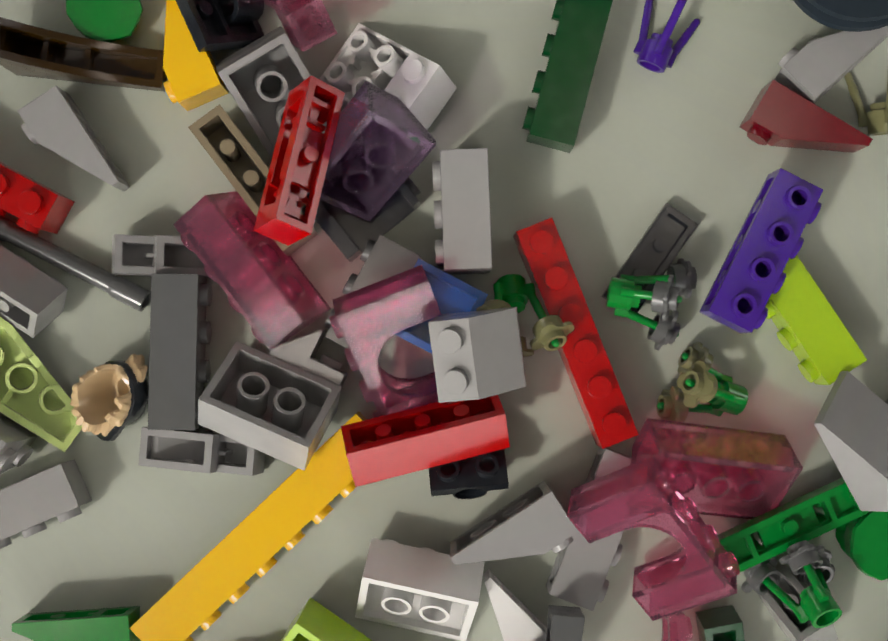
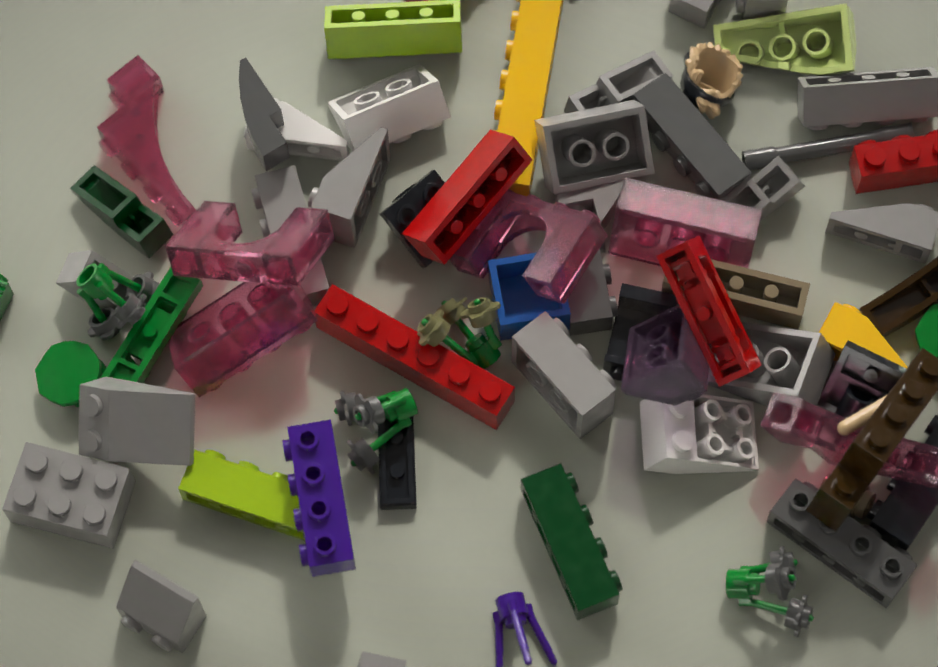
camera: 145 degrees right, 20 degrees down
(477, 354) = (476, 268): light grey slope -> none
(702, 385) = (297, 368): olive plant -> none
(791, 121) = (370, 629): dark red slope -> none

